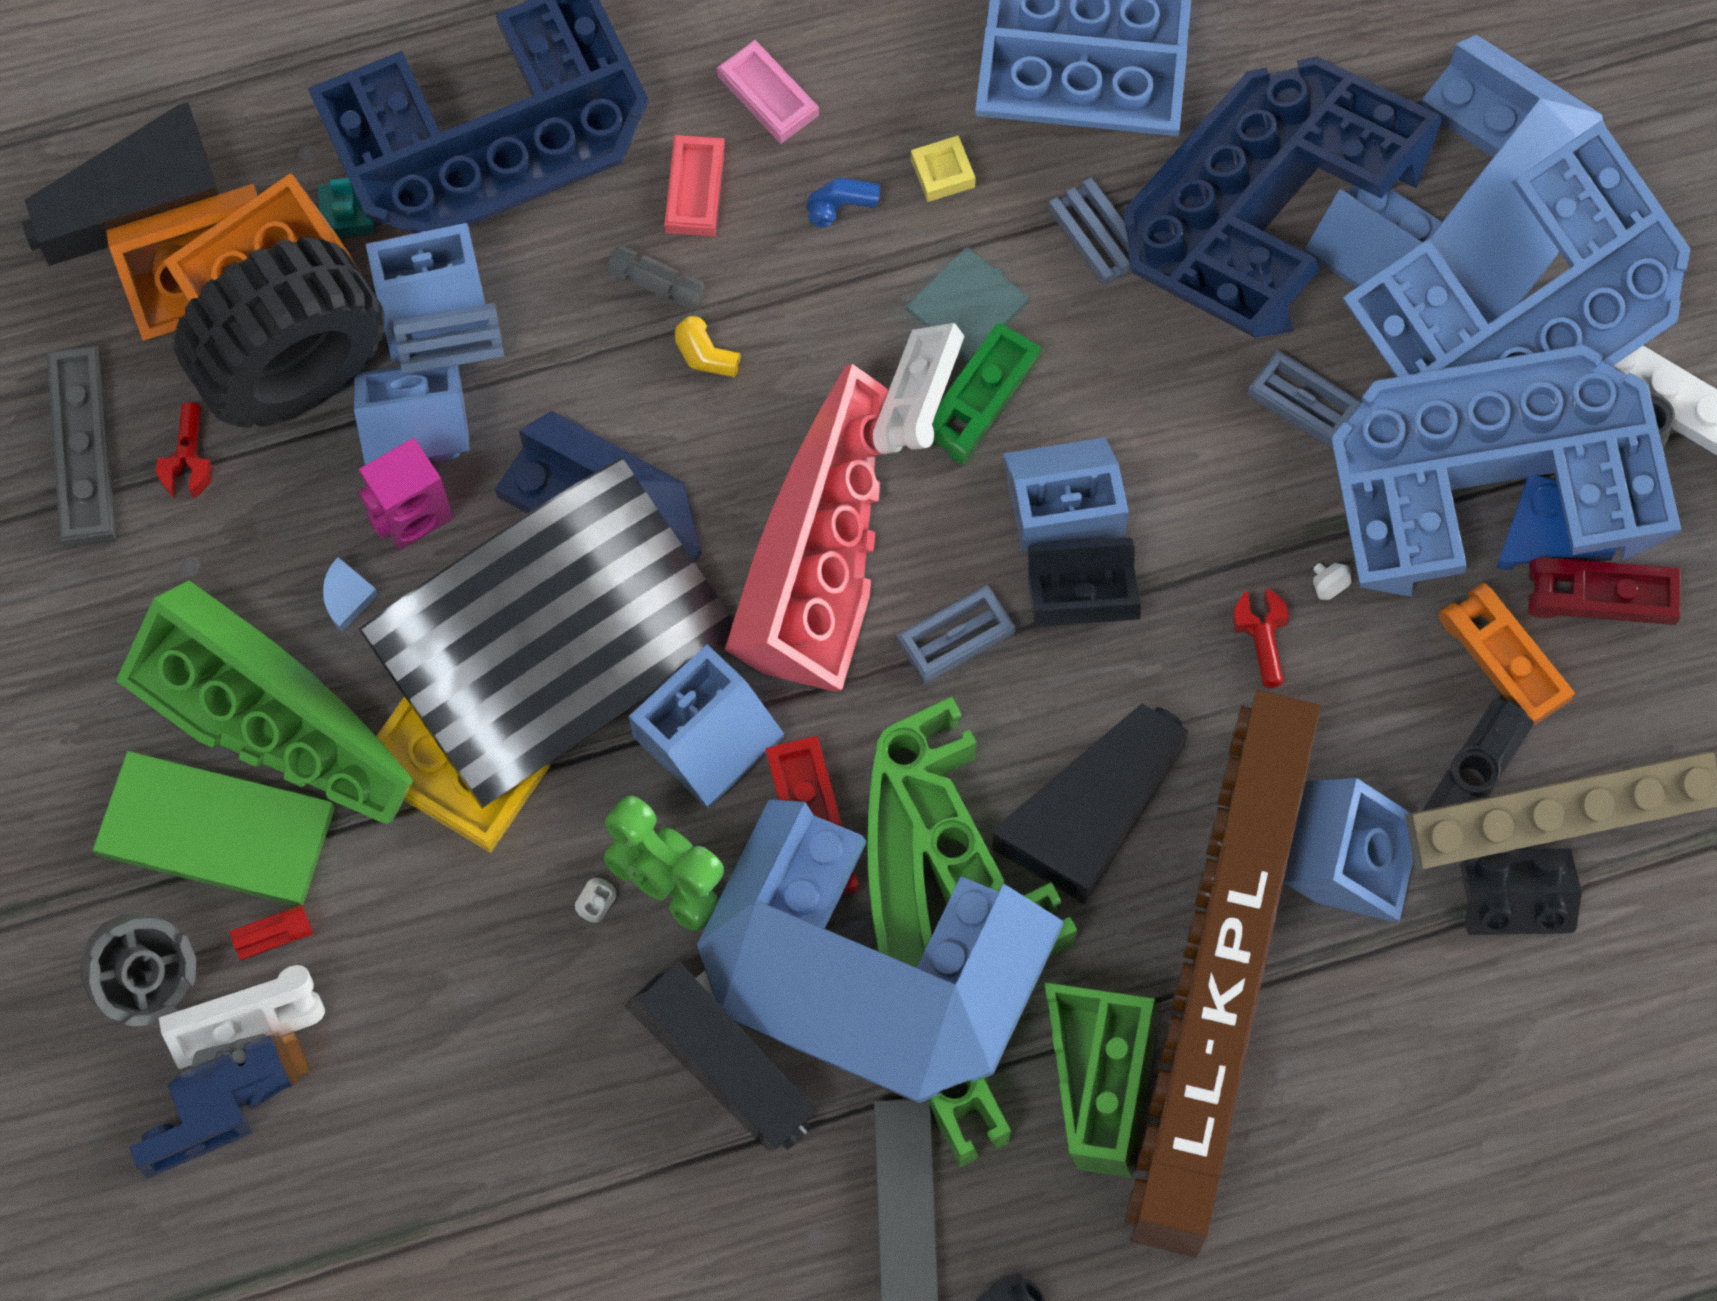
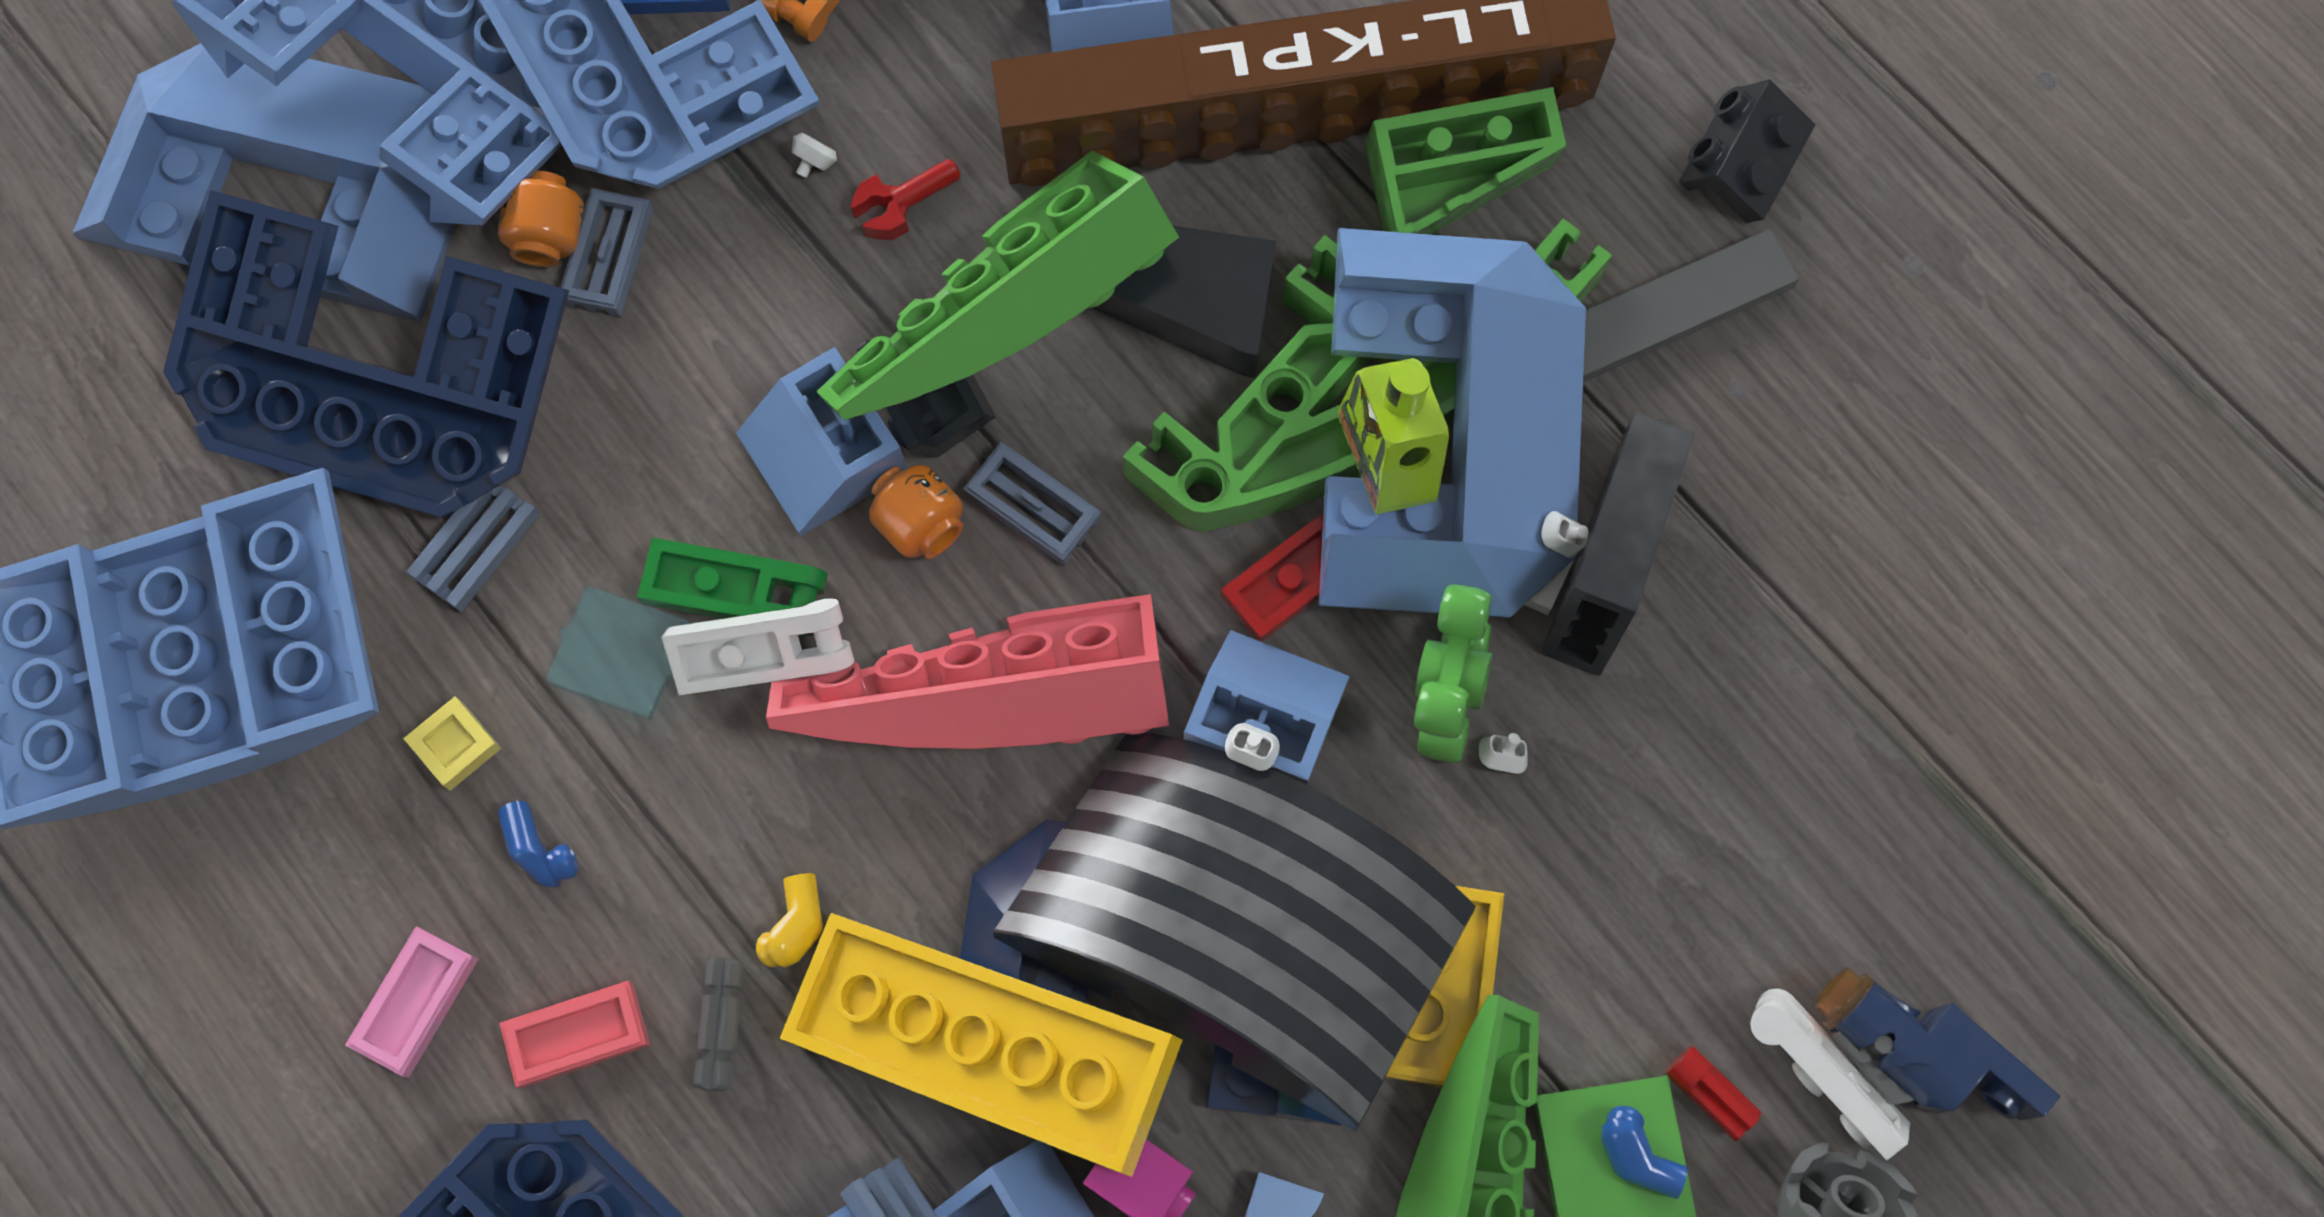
camera: 115 degrees left, 5 degrees up
(251, 842) = (1632, 1155): none -> blue arm
(547, 418) = (983, 1042): none -> yellow plate
(671, 684) = (1252, 746): none -> white rock
(739, 1000) = (1563, 534): none -> white rock
(862, 881) = (1392, 415): none -> lime torso
(979, 537) = (916, 511): none -> orange head
(1129, 690) = (1038, 271): none -> bright green wedge
(1343, 354) = (541, 220): none -> orange head

